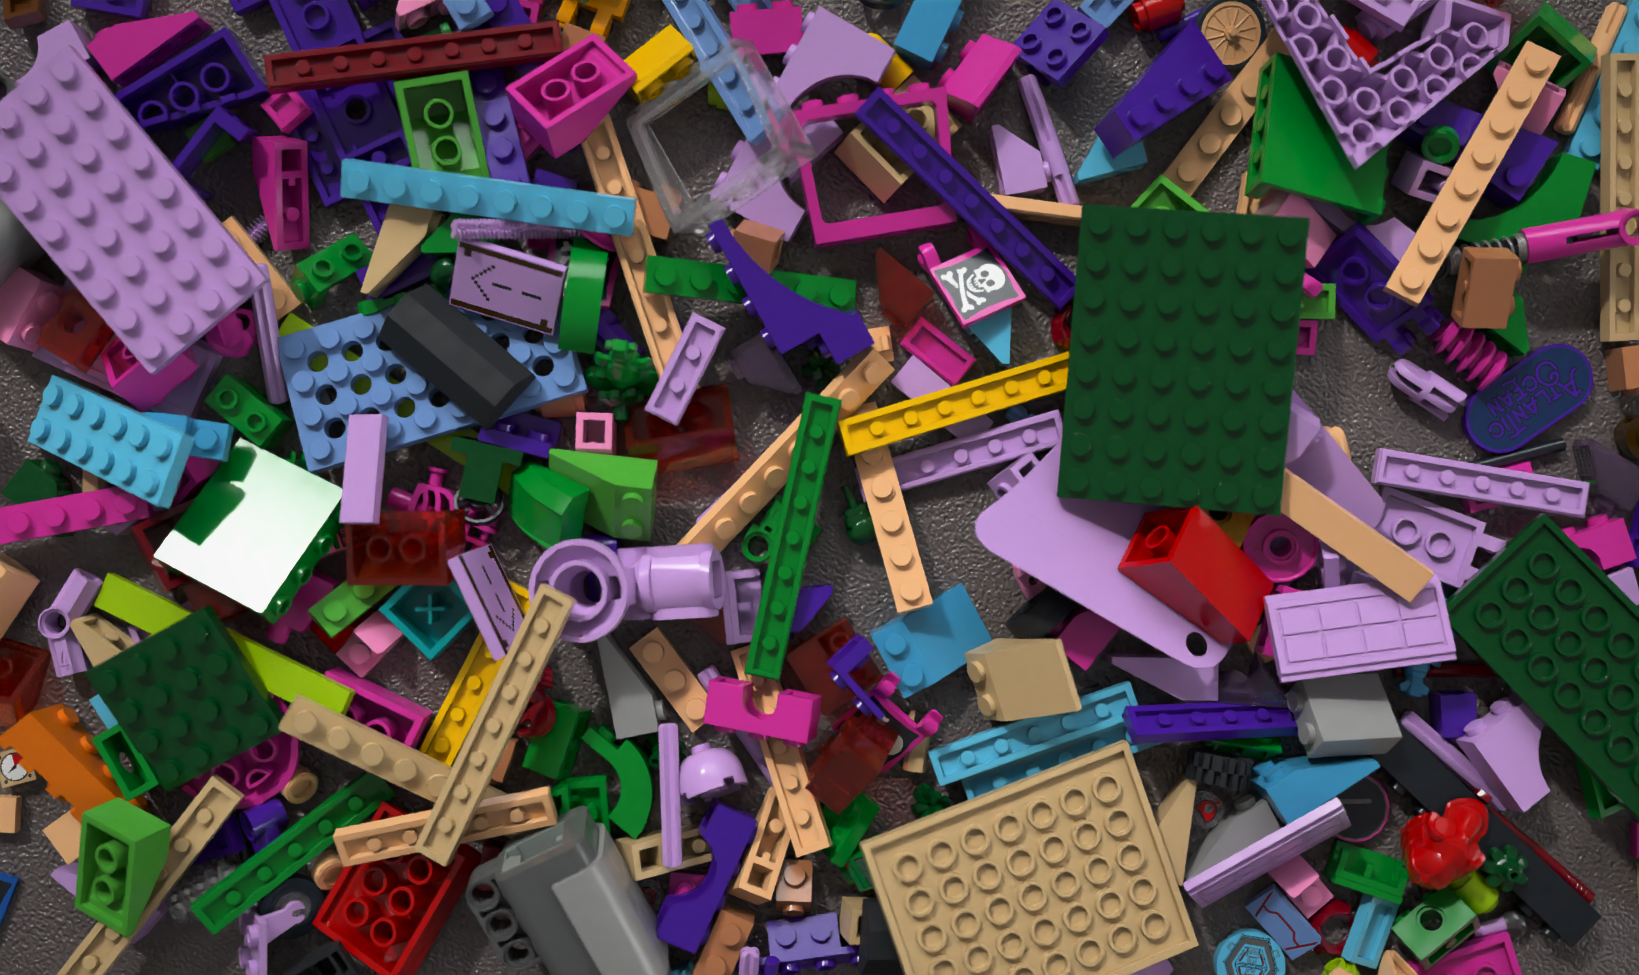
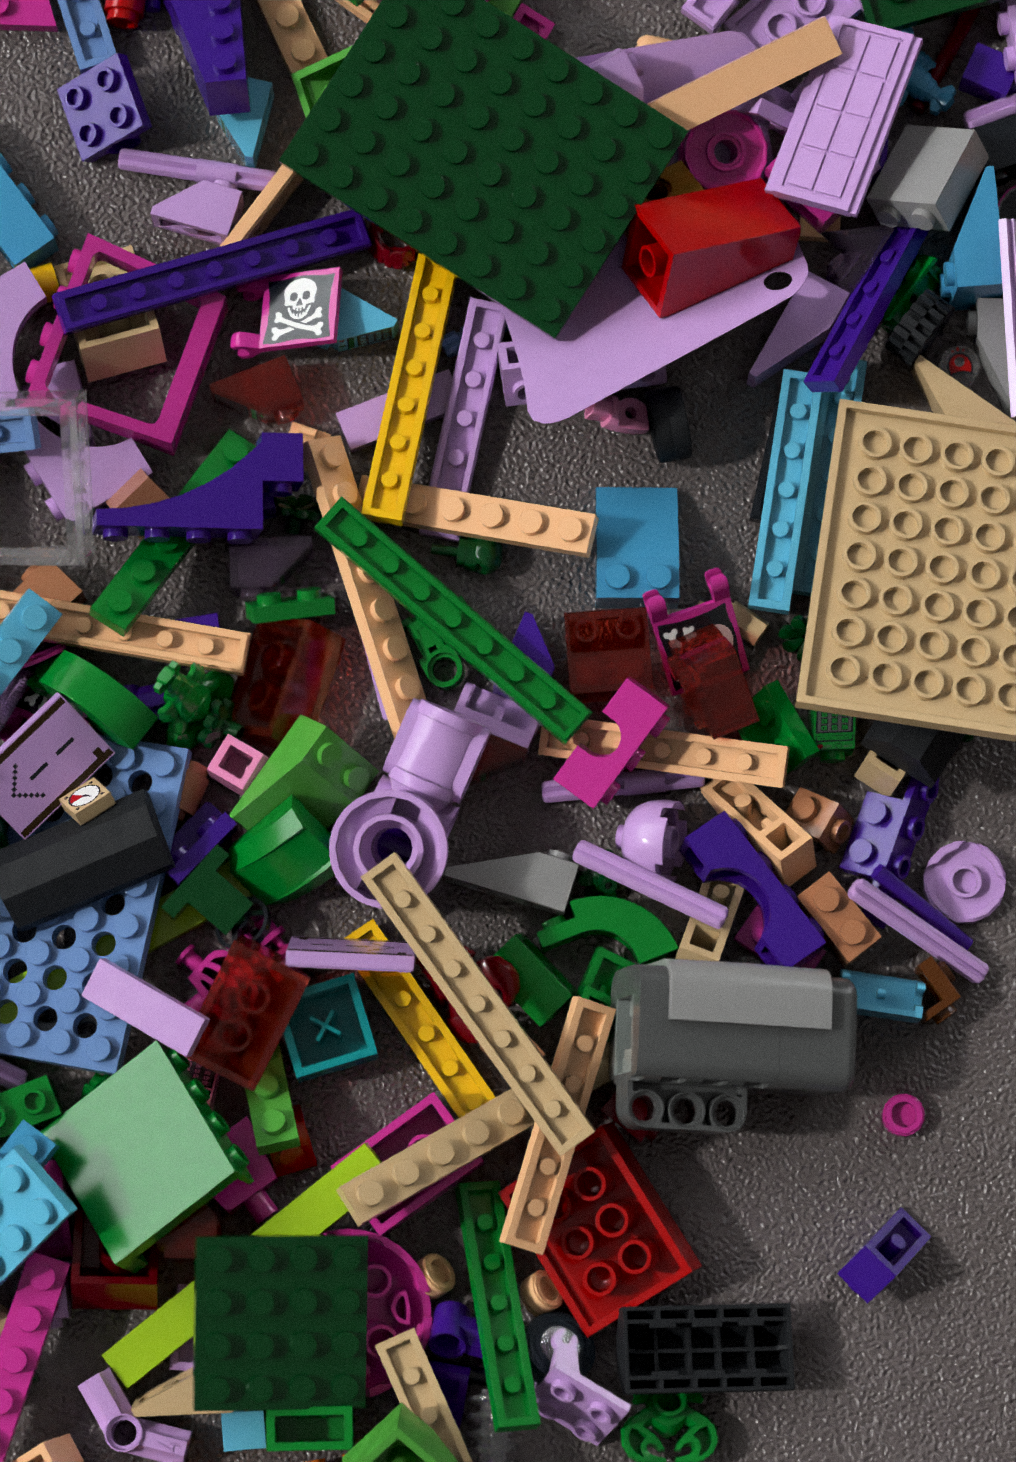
camera: 60 degrees left, 10 degrees down
(370, 643) = (325, 1118): bright pink slope -> none
(500, 336) = (87, 801): none -> tan tile
(672, 677) = (535, 829): light nougat plate -> none
(685, 369) = (224, 635): lavender tile -> none
(734, 397) = (273, 607): none -> green plate
(853, 656) = (606, 620): dark purple bracket -> none
(937, 352) = (345, 388): dark pink tile -> none
(978, 75) = (92, 199): dark pink slope -> none
(1022, 679) = (720, 468): tan slope -> none
(1084, 636) = (713, 389): dark pink slope -> none

